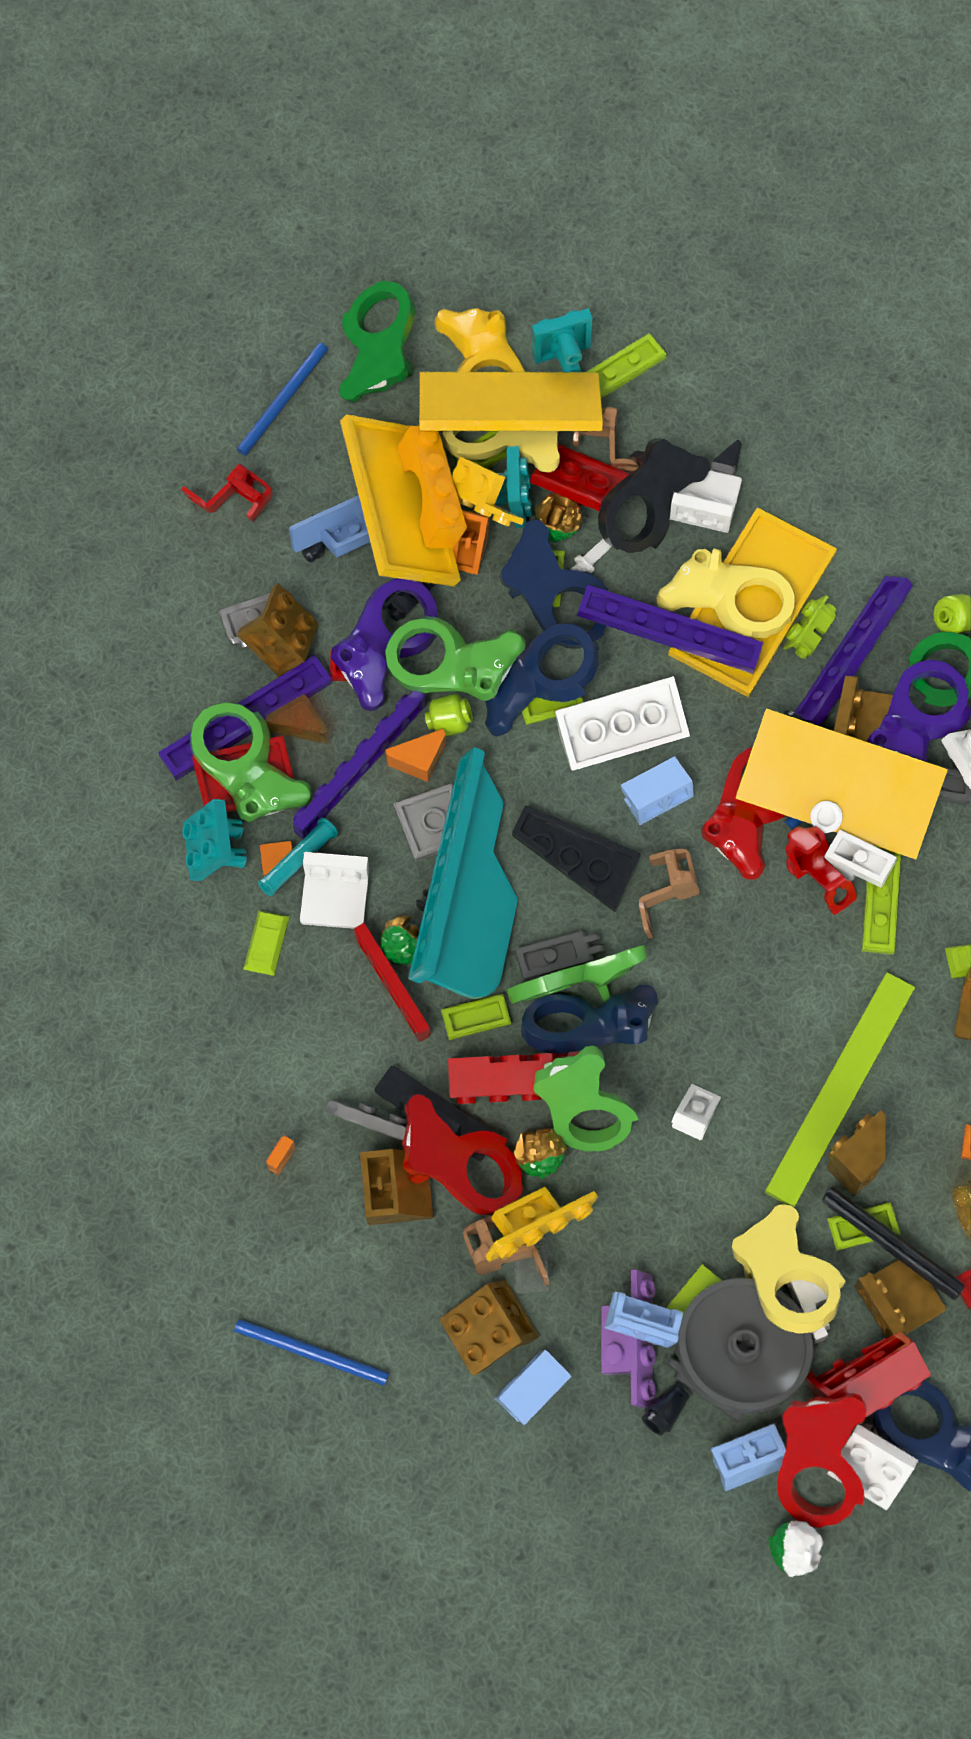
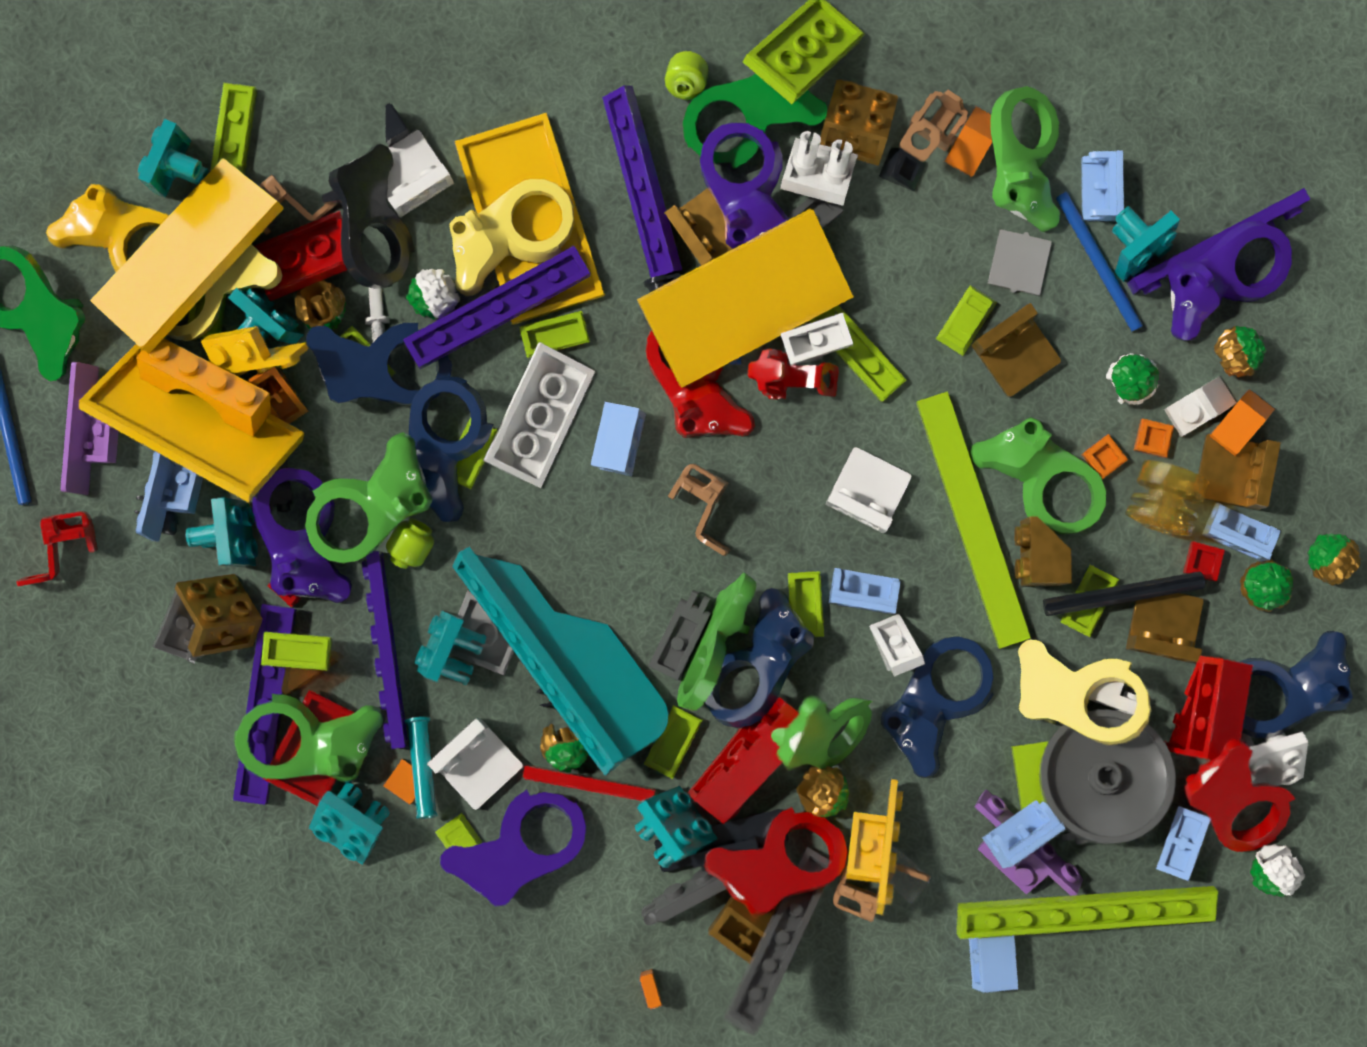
camera: 50 degrees left, 15 degrees up
(278, 970) = (504, 865): none -> dark purple animal
(303, 700) = (296, 651): none -> lime tile
(322, 451) = (85, 436): none -> medium lavender bracket
(343, 590) = (229, 533): none -> teal plate
(389, 1204) = (775, 951): none -> dark grey plate
(408, 788) = (434, 658): none -> teal plate
(418, 755) = (422, 597): orange slope -> none
(418, 1061) = (676, 825): none -> teal plate
(488, 1326) = (920, 946): pearl gold bracket -> none
(583, 857) = (623, 544): black wing -> none
(631, 1426) = (1086, 912): none -> lime tile
(638, 580) = (432, 294): none -> white piece
(663, 1178) = (921, 713): none -> dark blue animal
(665, 1410) = (1095, 872): black cone -> none
(667, 1022) = (806, 600): none -> lime tile
(691, 686) = (555, 333): none -> lime tile
(712, 1055) = (864, 591): none -> light blue hinge
(788, 994) = (868, 490): none -> white bracket
(802, 634) = (587, 181): lime hinge -> none
(826, 816) = (761, 334): white tile -> none
(927, 1094) = (1034, 459): none -> bright green animal

